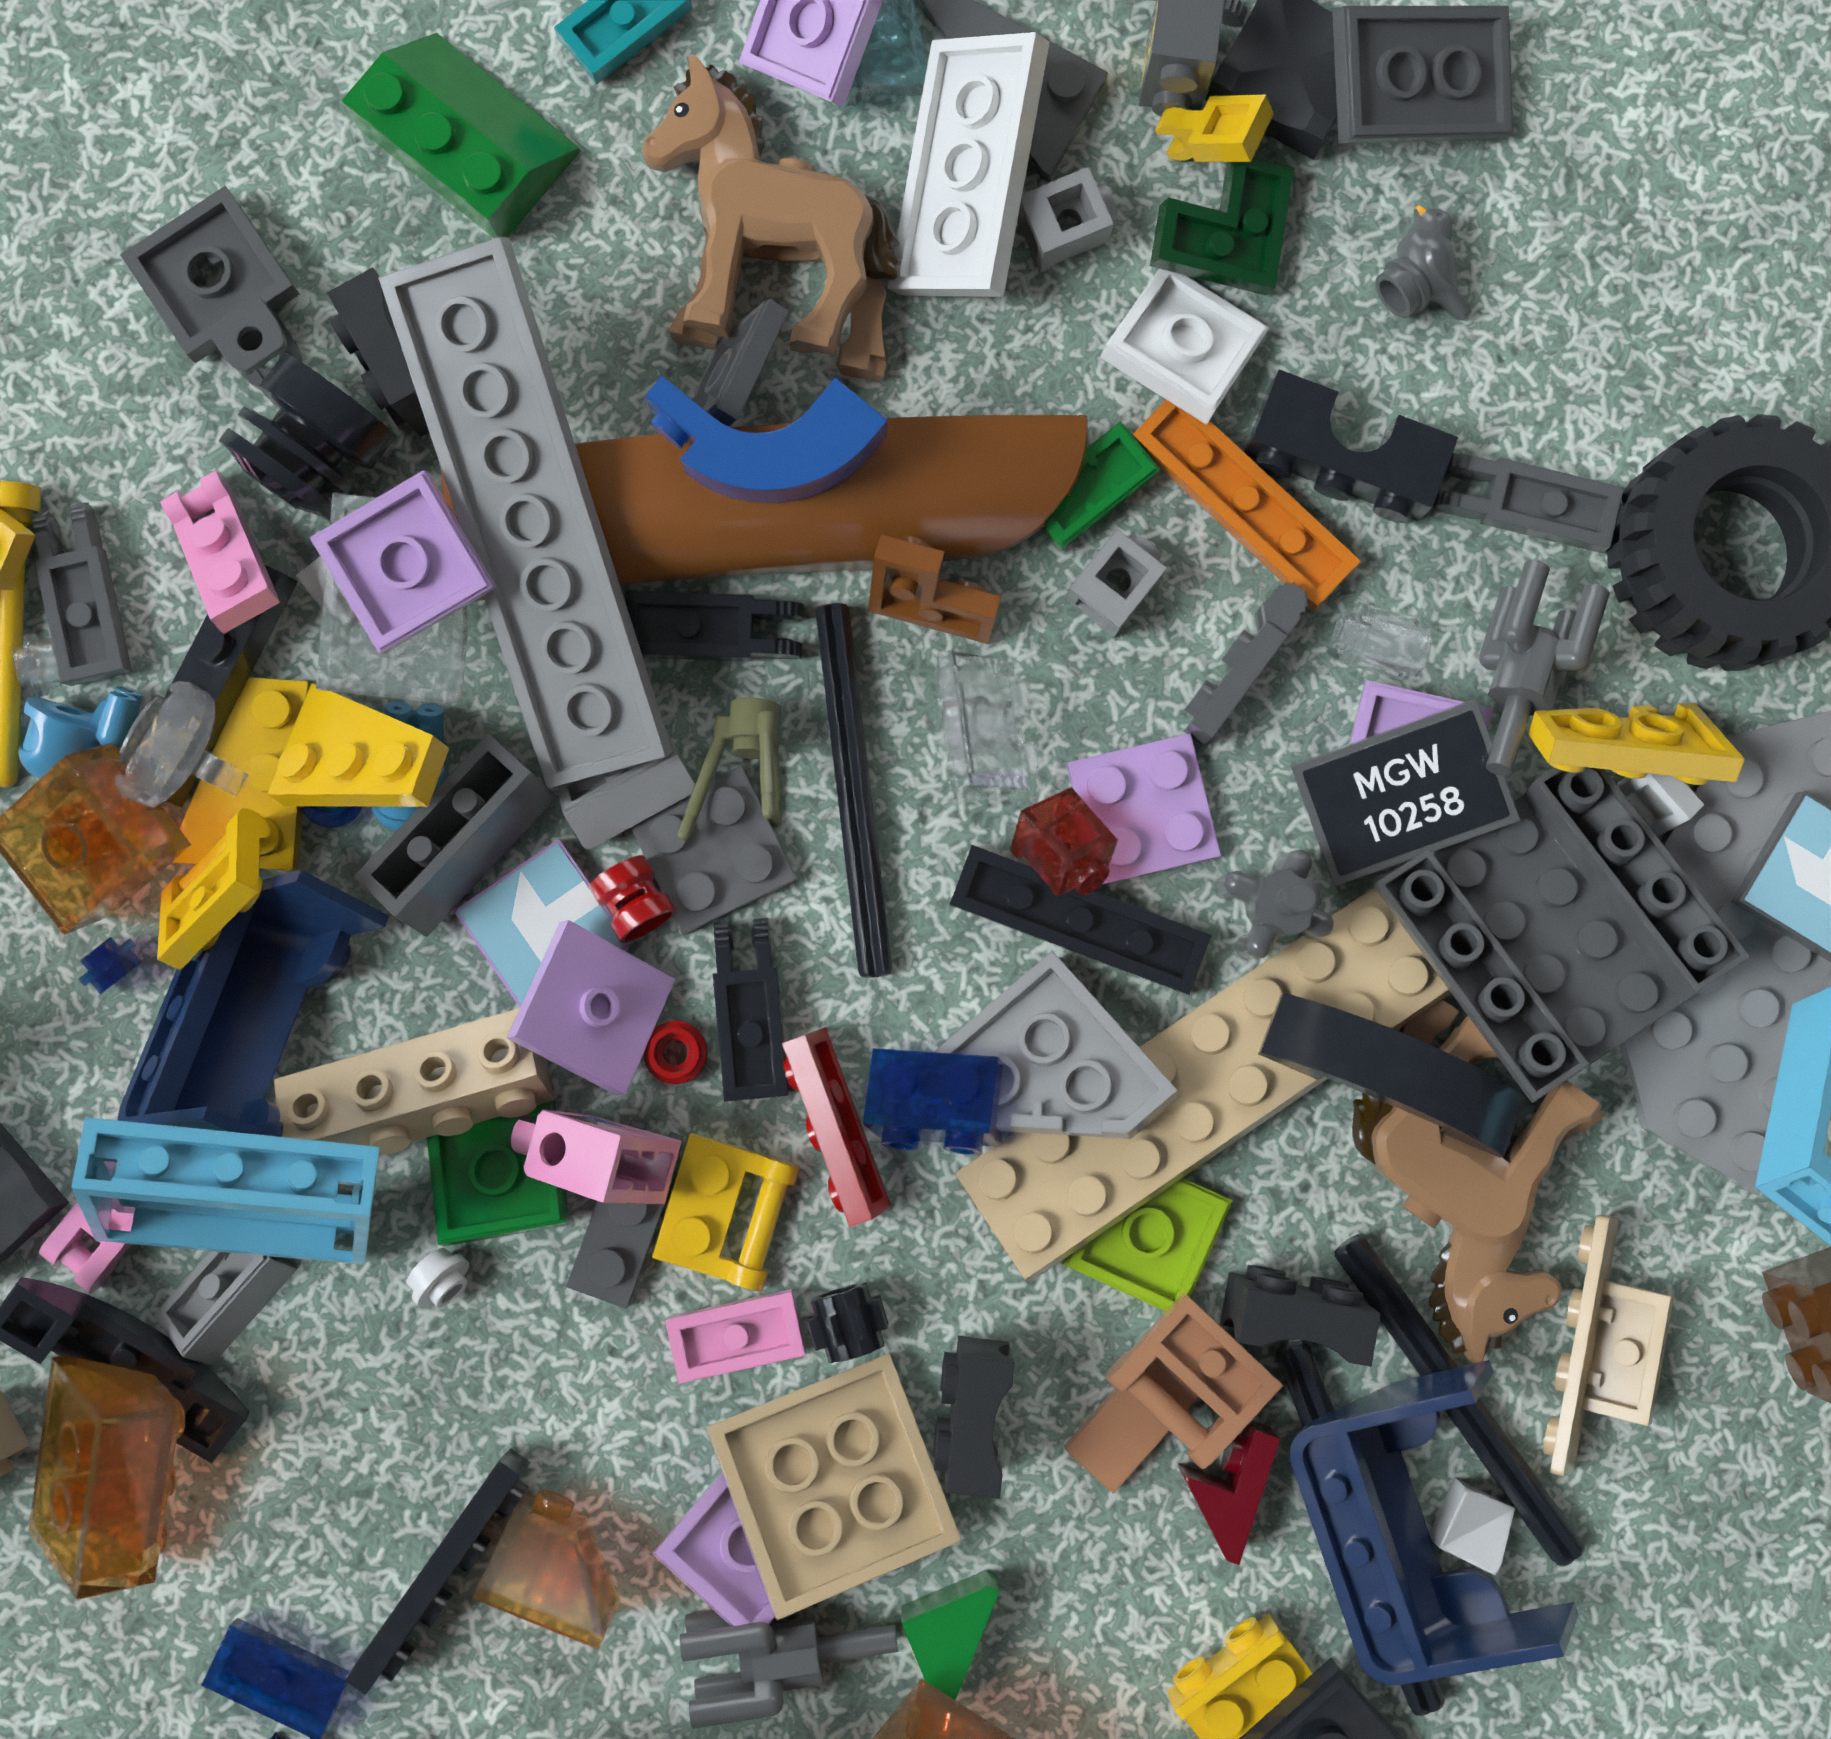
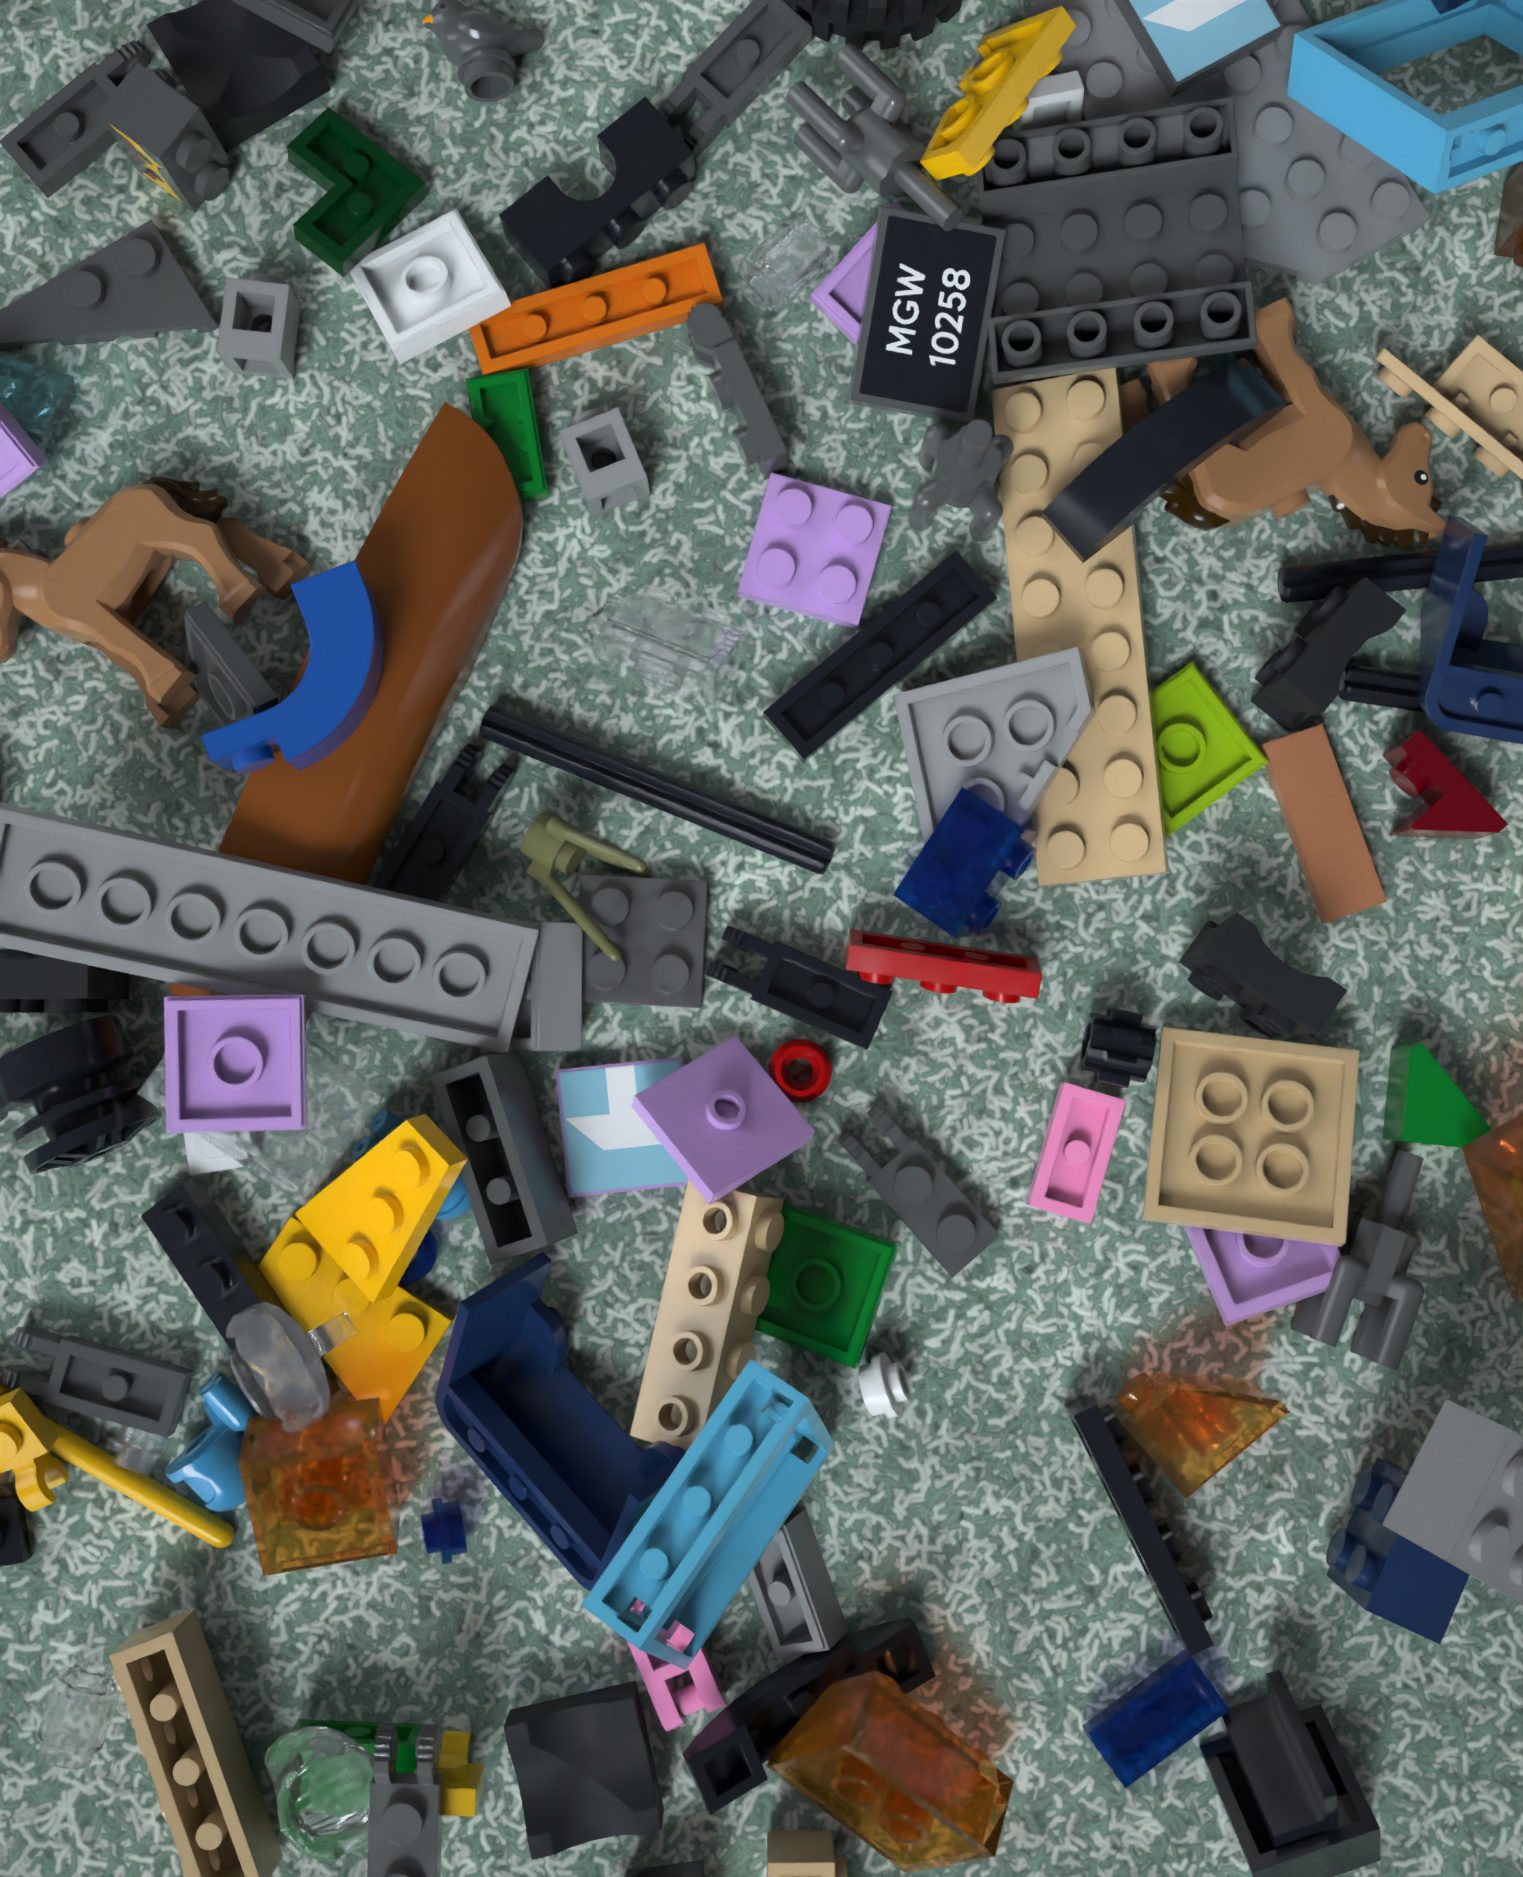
camera: 65 degrees left, 0 degrees up
(213, 891) = (432, 1398): yellow plate -> none
(221, 553) = (132, 1229): bright pink plate -> none
(596, 1157) = (855, 1184): bright pink torso -> none
(632, 898) = (645, 1032): red wheel -> none
(705, 1204) = (947, 1118): yellow plate -> none
(910, 590) = (515, 637): dark orange plate -> none
(969, 165) = (164, 379): white plate -> none
(1065, 843) = (808, 628): clear red brick -> none
(1208, 1364) = (1324, 755): nougat plate -> none
(1221, 132) = (261, 148): yellow plate -> none

